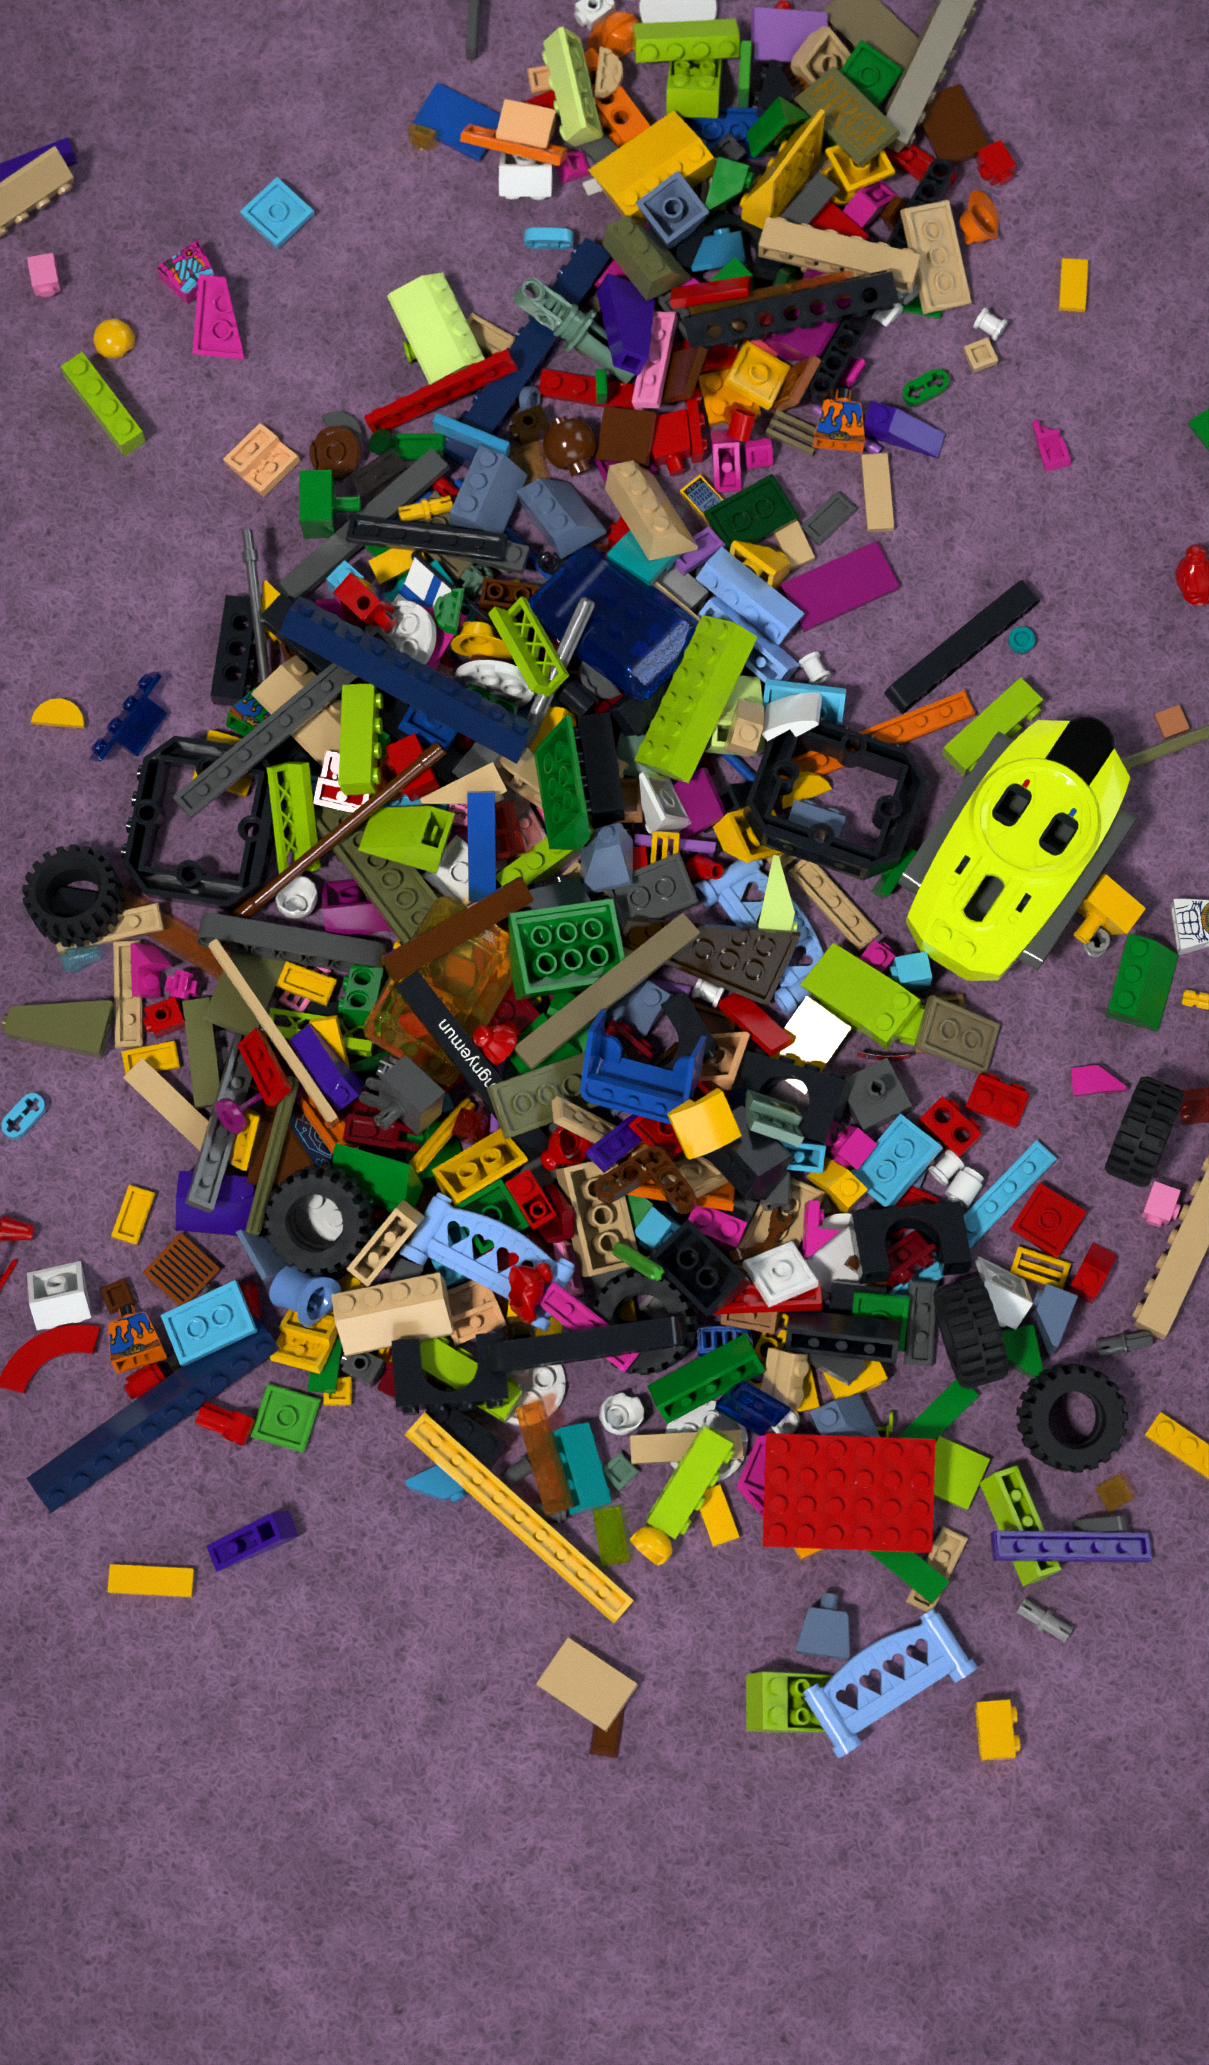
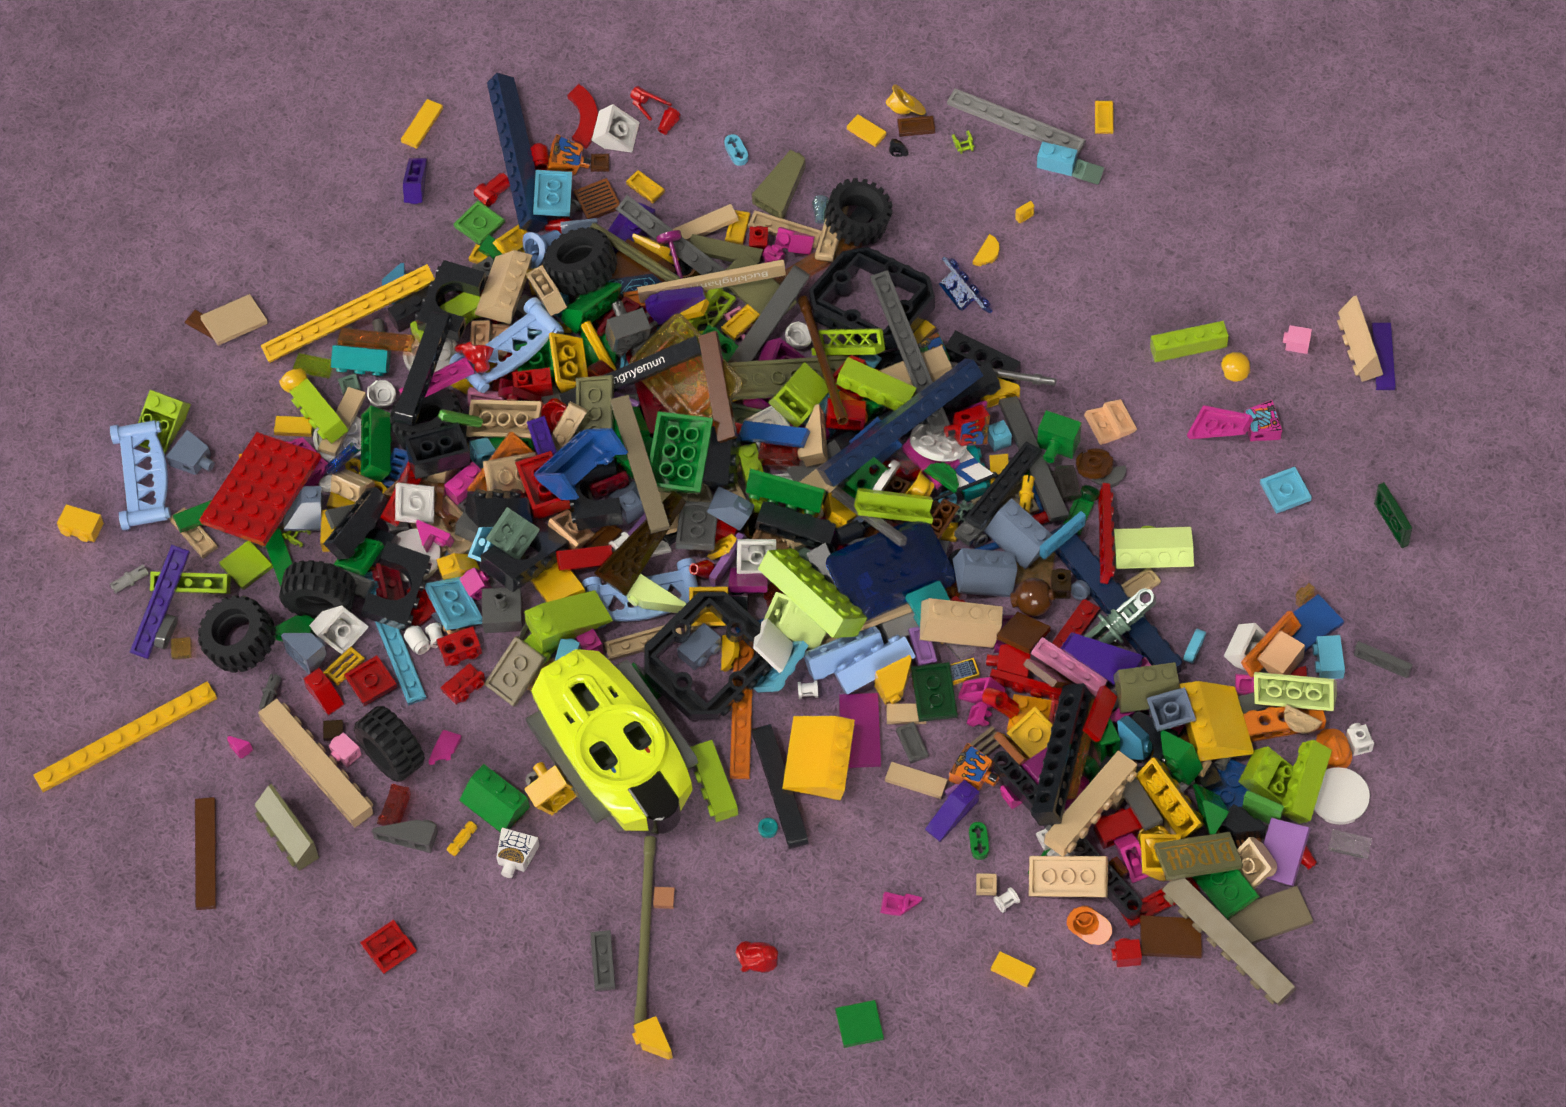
camera: 115 degrees right, 15 degrees down
(264, 1067) = (688, 267): red plate -> none
(268, 68) = (1393, 515): none -> dark green tile
(496, 1041) = (639, 391): red hair -> none
(497, 79) = (1329, 657): none -> medium azure brick
(601, 386) = (1064, 629): green tile -> none
(653, 1171) = (511, 447): reddish brown beam -> none
(704, 1124) = (524, 483): yellow slope -> none
(745, 728) = (777, 613): tan slope -> none
(908, 607) = (818, 755): none -> yellow slope
(1136, 1236) = (332, 728): none -> dark brown tile

